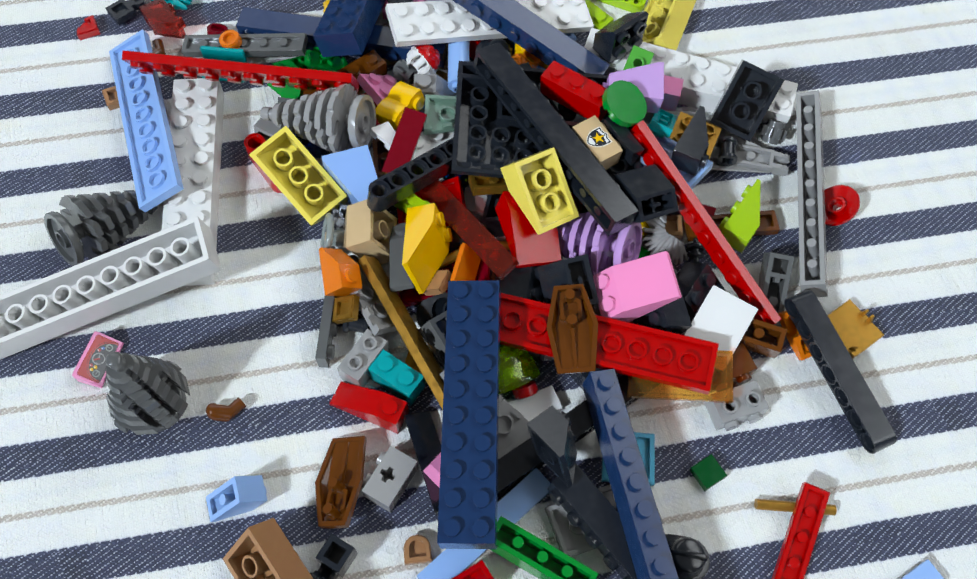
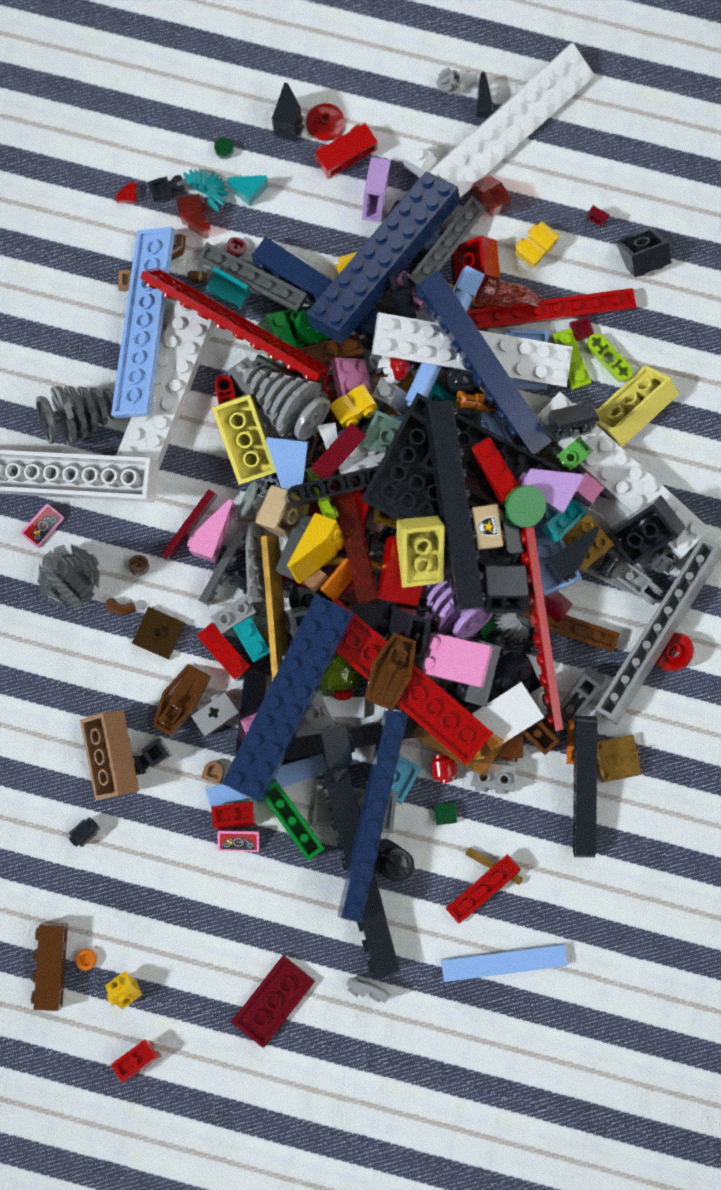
camera: 30 degrees right, 20 degrees up
(230, 39) = (241, 270): orange tile -> none
(230, 355) = (138, 565): none -> reddish brown tile
(236, 497) = (104, 678): light blue slope -> none
(272, 290) = (189, 524): none -> dark red tile
(283, 419) = (158, 633): none -> dark brown plate
(301, 285) = (211, 535): none -> bright pink slope
(339, 272) = (242, 539): orange slope -> none
(346, 309) = (236, 571): pearl gold tile -> none
(678, 421) = (443, 768): none -> red head
(744, 218) = (583, 636): lime slope -> none

